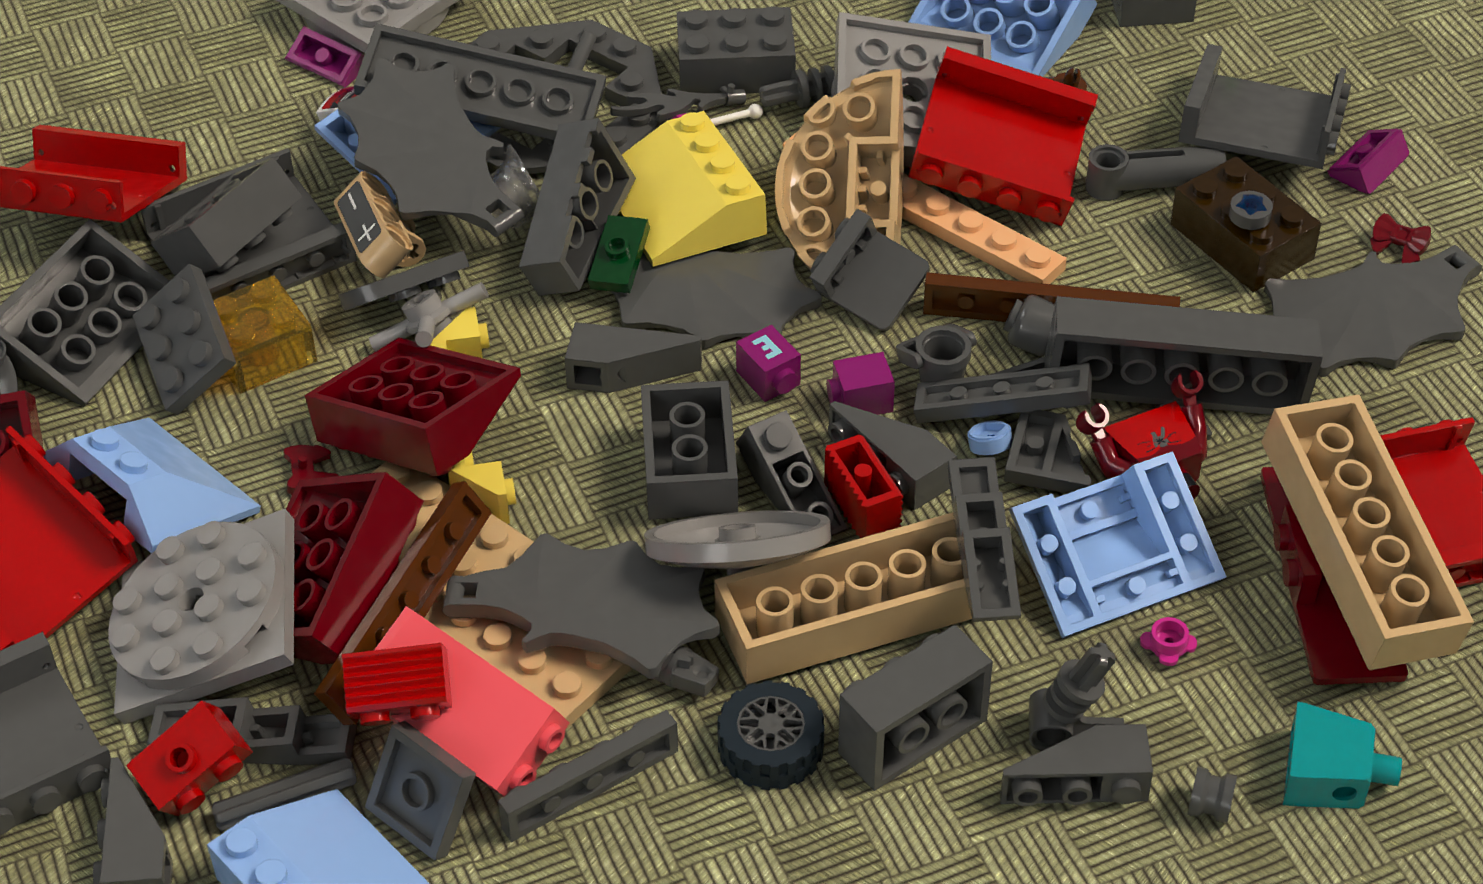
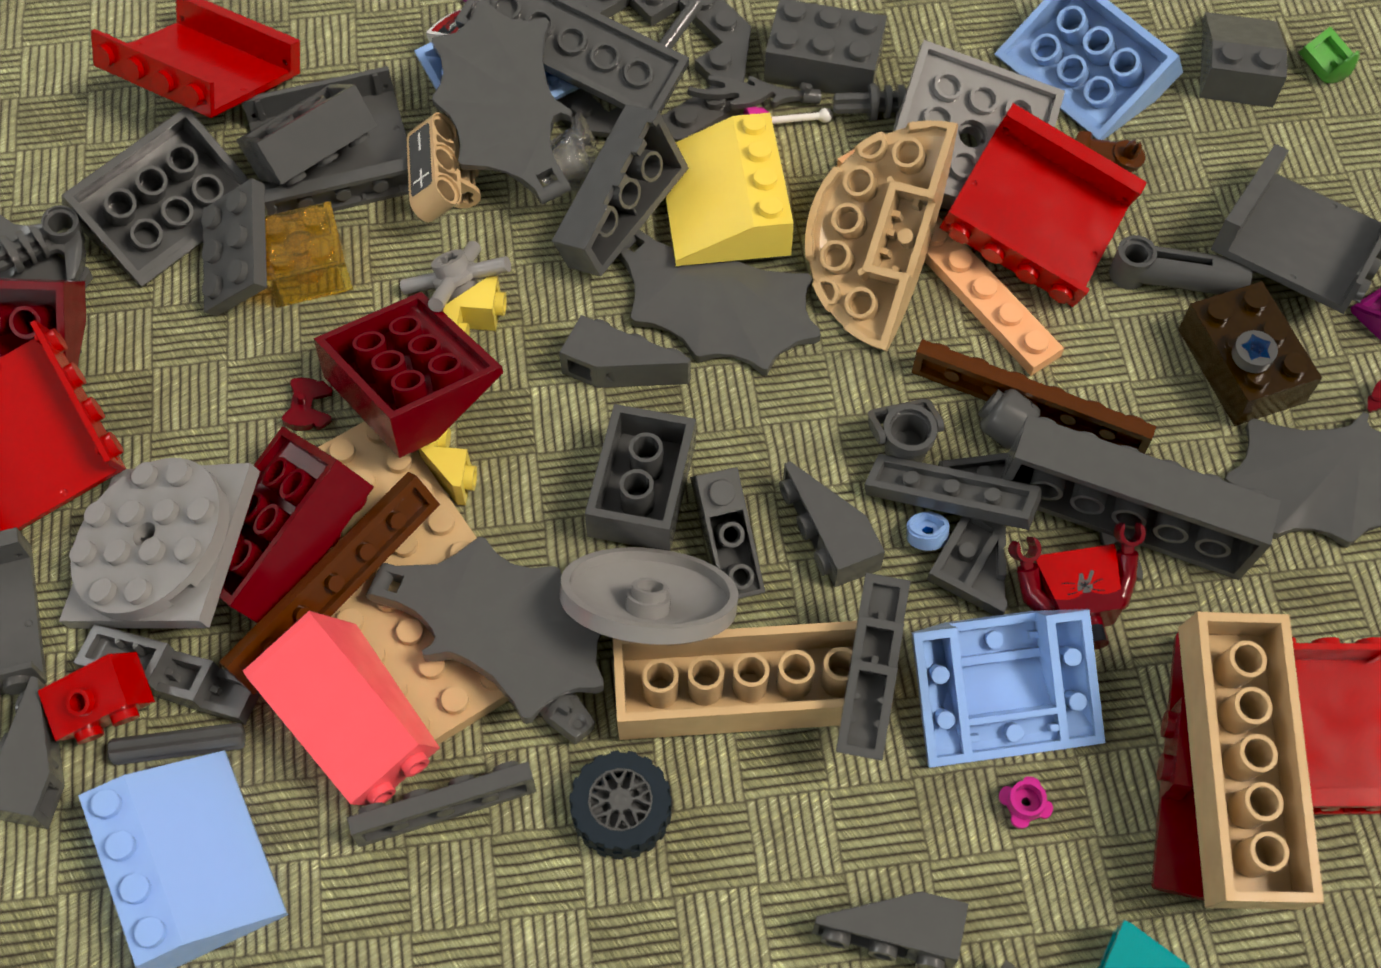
camera: 15 degrees right, 15 degrees up
(158, 476) = (164, 390): light blue slope -> none
(397, 683) = (278, 688): red brick -> none
(407, 282) = (445, 232): dark grey plate -> none
(420, 790) = (283, 785): dark grey plate -> none
(619, 254) = (647, 247): dark green plate -> none
(768, 363) = (747, 398): magenta brick -> none
(862, 487) = (787, 562): red brick -> none
(863, 383) = (824, 444): magenta brick -> none
(868, 272) = (868, 325): dark grey bracket -> none
(914, 706) = (756, 820): dark grey brick -> none
(1059, 709) = (905, 862): dark grey piece -> none

